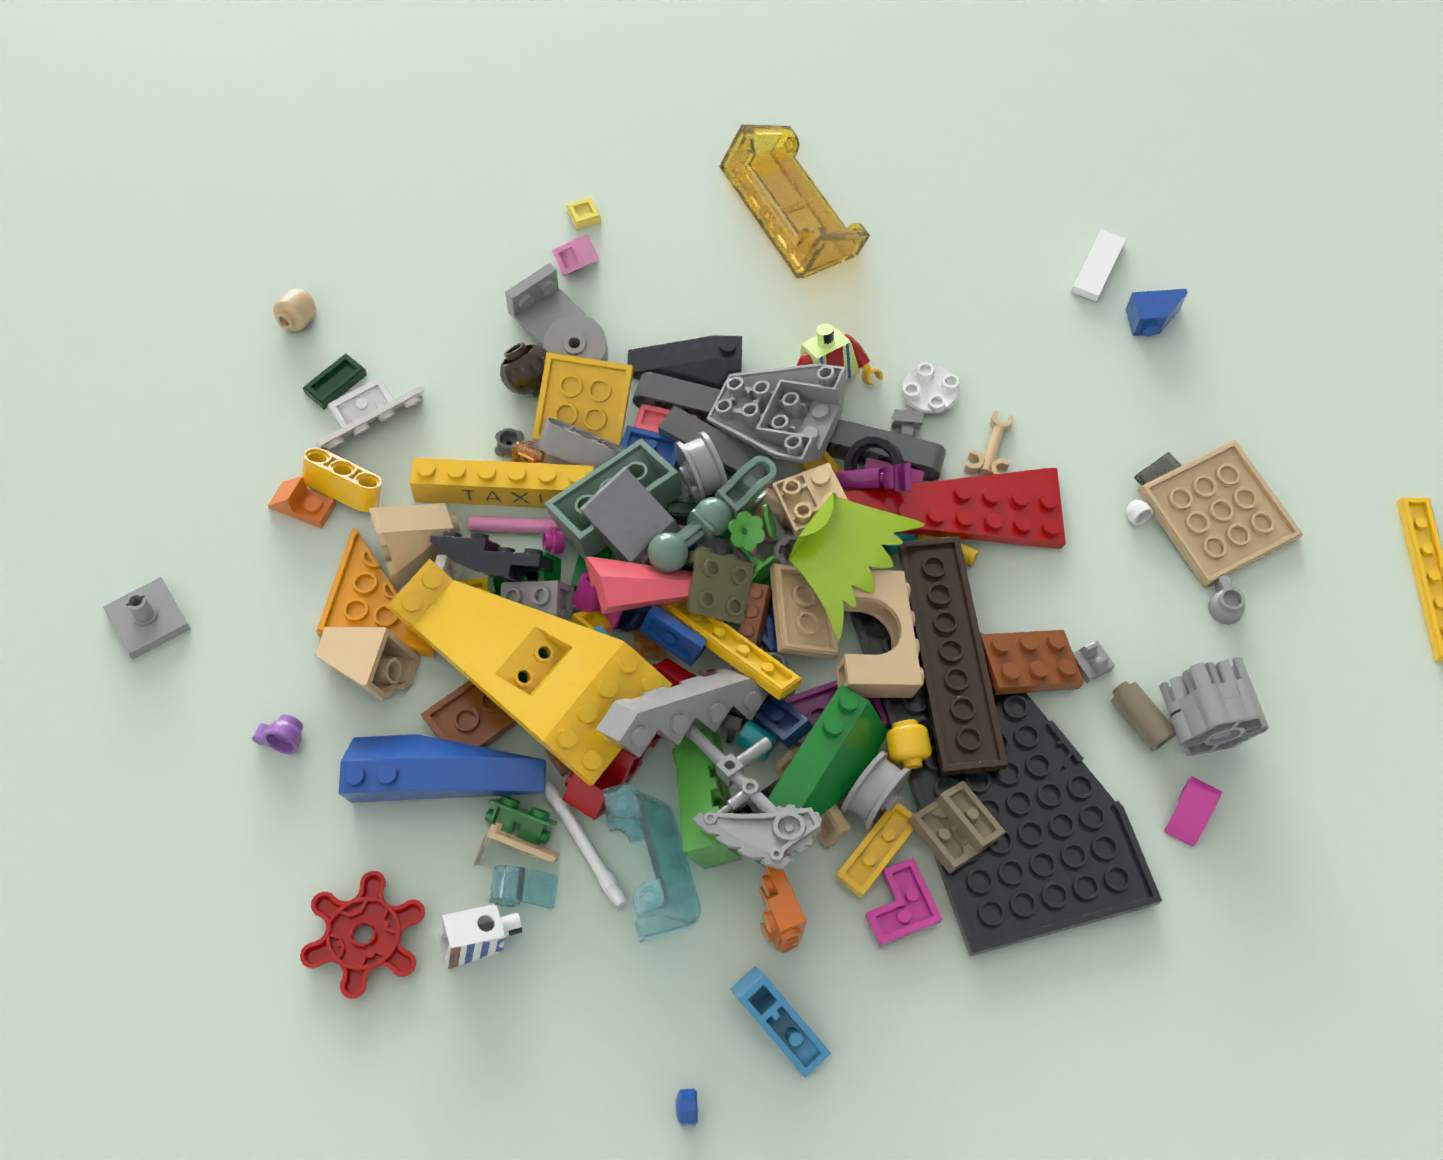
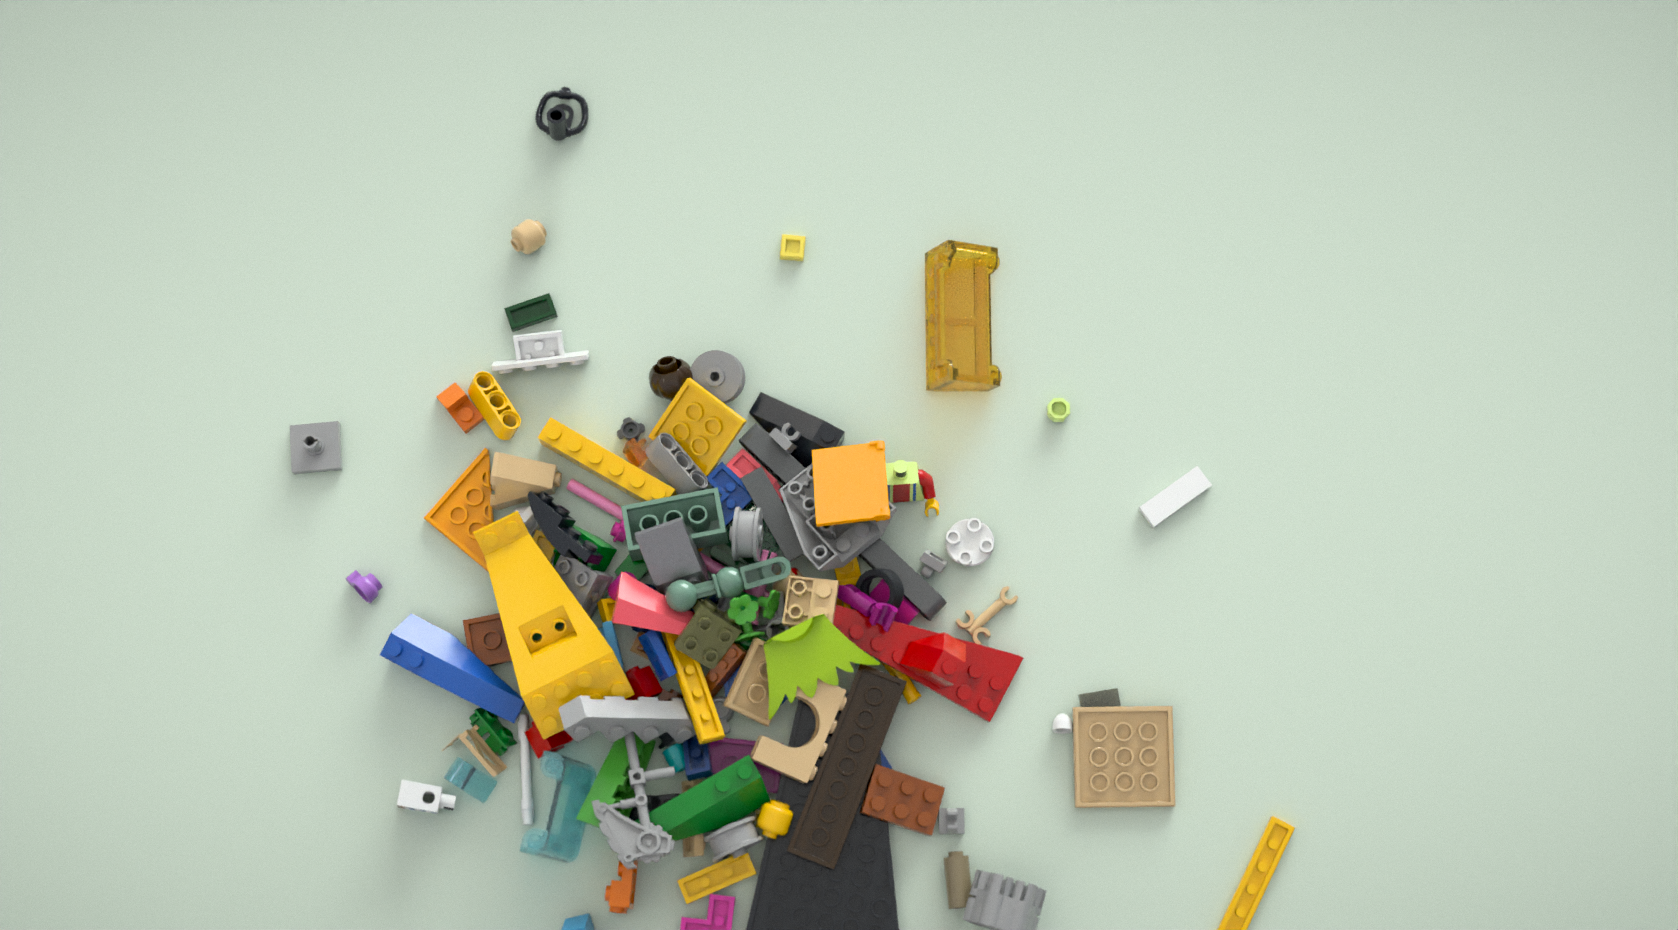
camera: 30 degrees right, 15 degrees up
(272, 193) = (558, 125): none -> black piece
(343, 922) = (336, 757): red plate -> none
(369, 658) = (444, 564): tan slope -> none
(539, 302) = (715, 325): light grey bracket -> none
(575, 255) = (764, 287): bright pink panel -> none
(683, 370) = (784, 439): none -> light grey tile
(783, 370) = (850, 484): none -> light orange piece
(937, 239) = (1058, 409): none -> yellowish green tile
(956, 826) = (774, 892): dark tan slope -> none
(982, 495) = (936, 658): none -> red slope
(1153, 310) = (1188, 563): blue slope -> none
(1227, 603) = (1079, 830): light grey piece -> none

